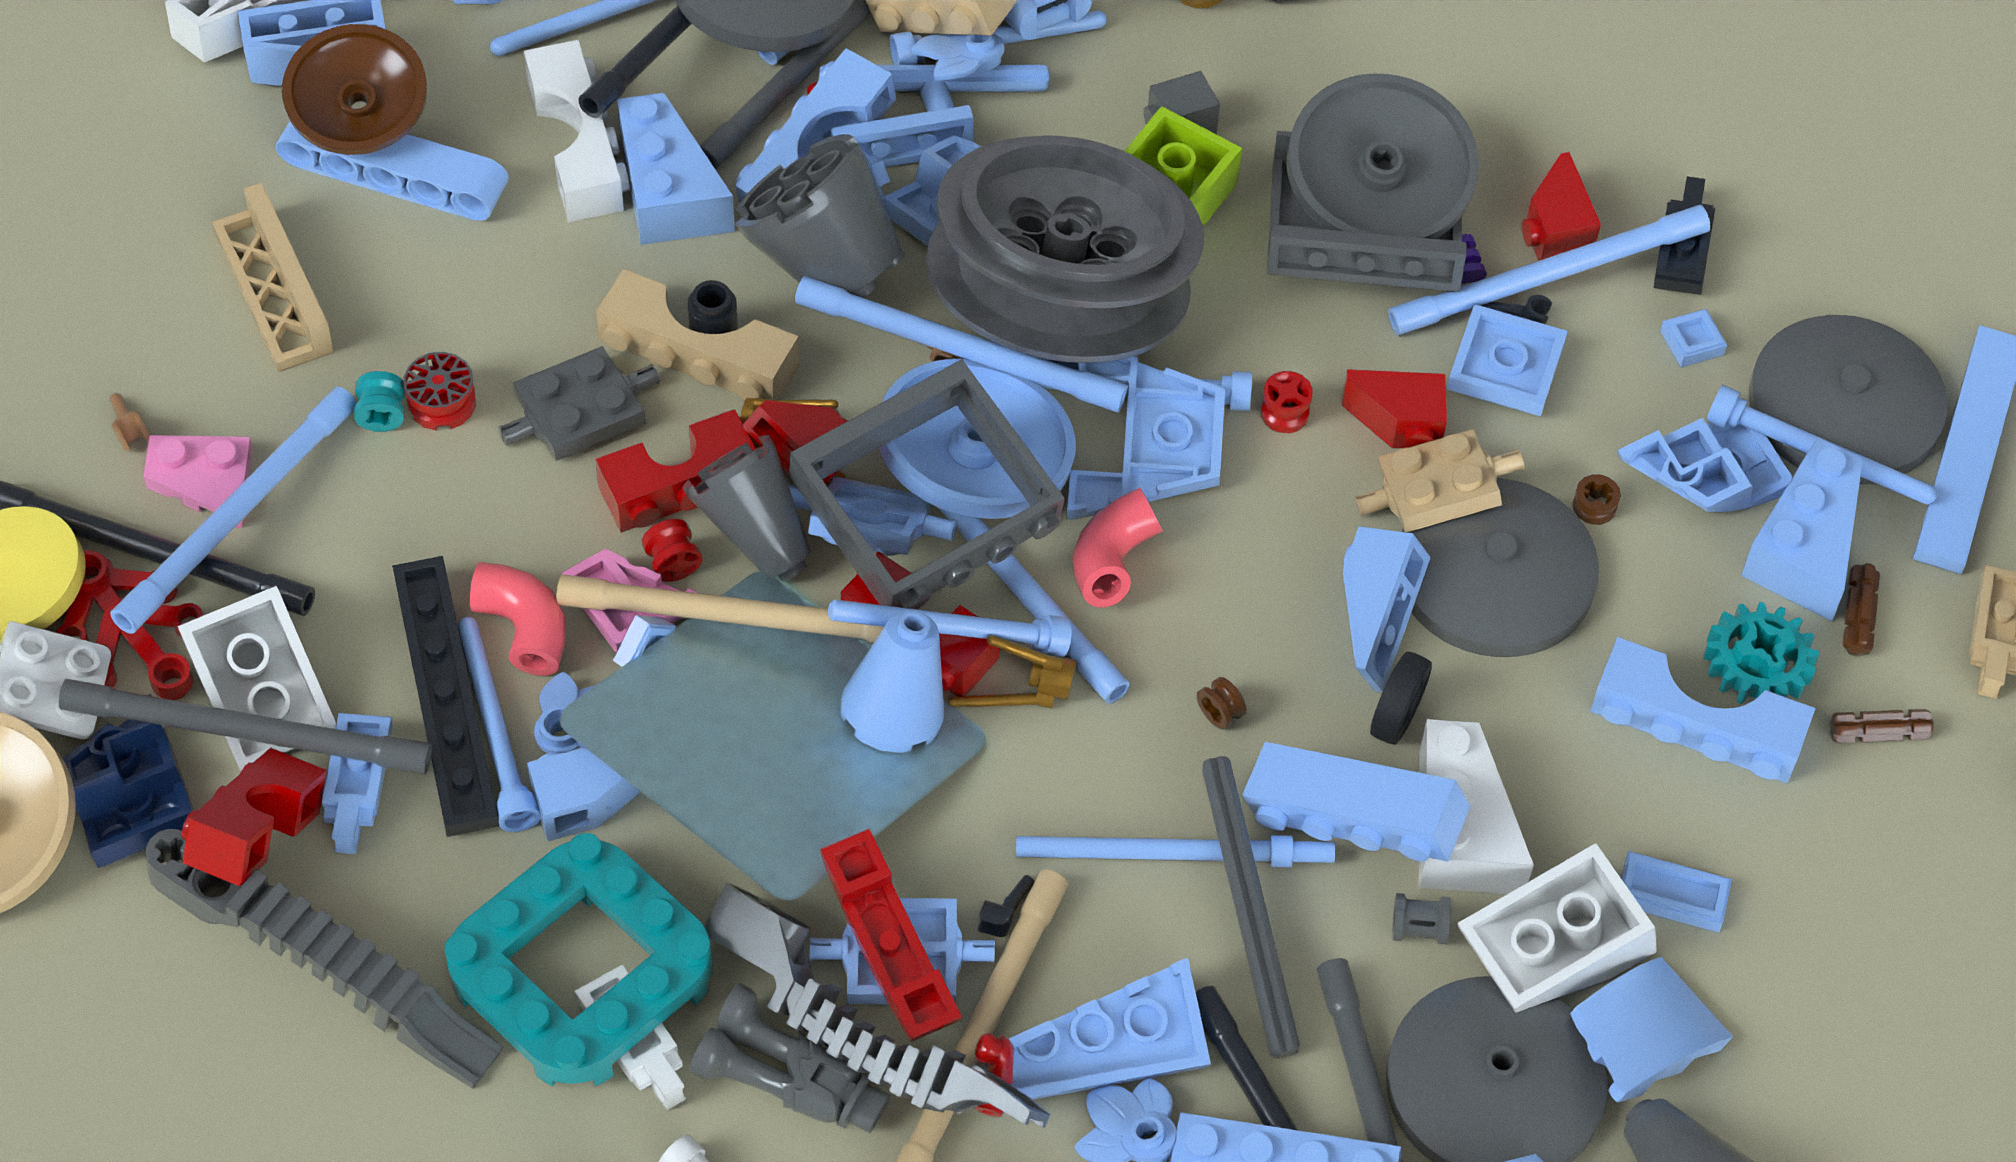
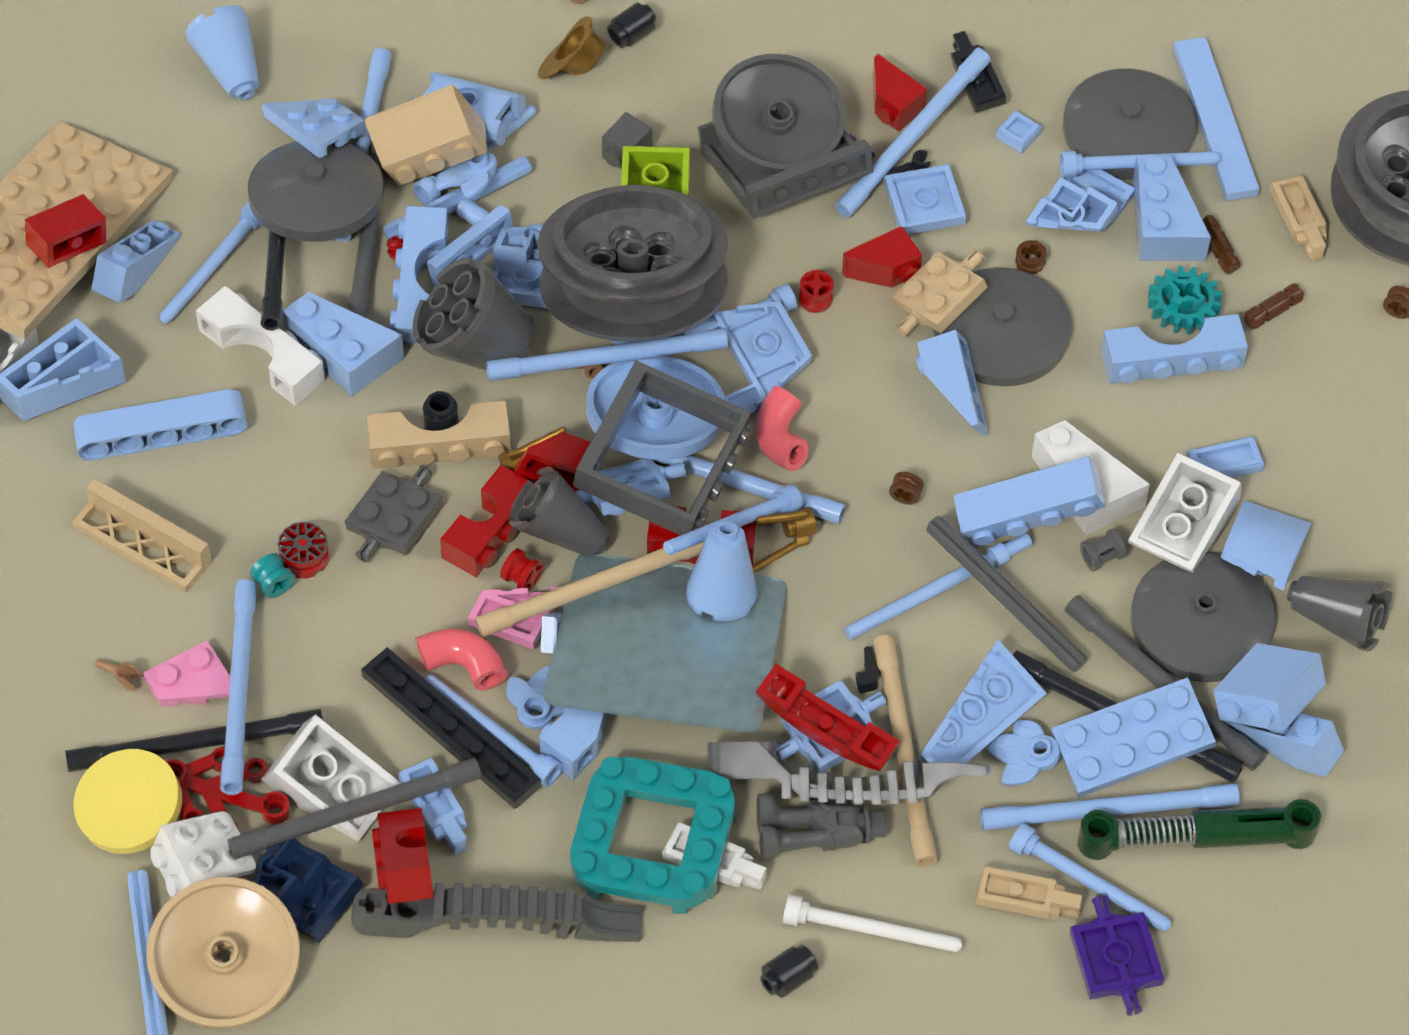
camera: 30 degrees left, 0 degrees up
(351, 67) = (111, 370): reddish brown dish -> none
(1000, 1060) = (936, 752): red arm -> none
(1401, 698) = (1008, 430): black tyre -> none

